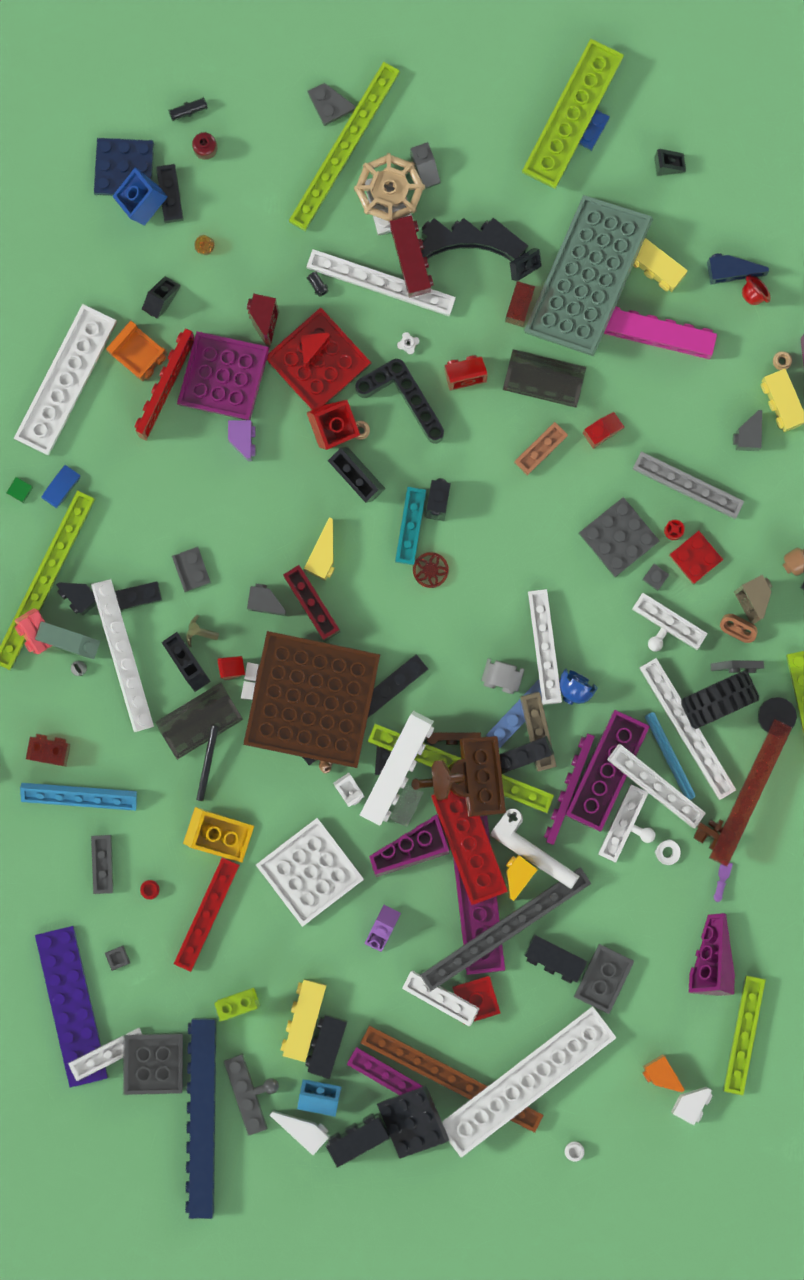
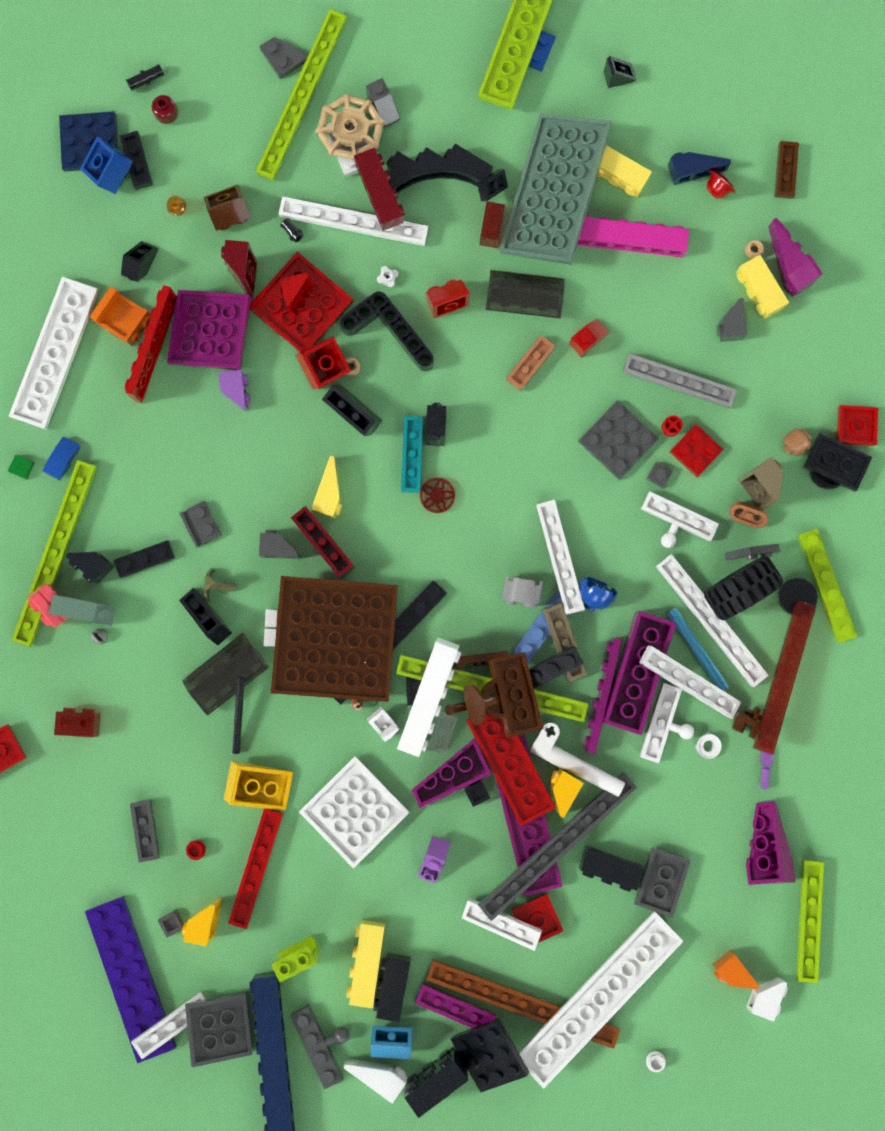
camera: 10 degrees left, 0 degrees up
(78, 796) = (113, 765): dark azure plate -> none
(122, 655) = (140, 618): white plate -> none
(150, 960) = (202, 925): none -> yellow slope
(231, 667) = (249, 617): red slope -> none
(255, 253) = (227, 208): none -> reddish brown slope
(432, 869) = (477, 793): none -> black plate

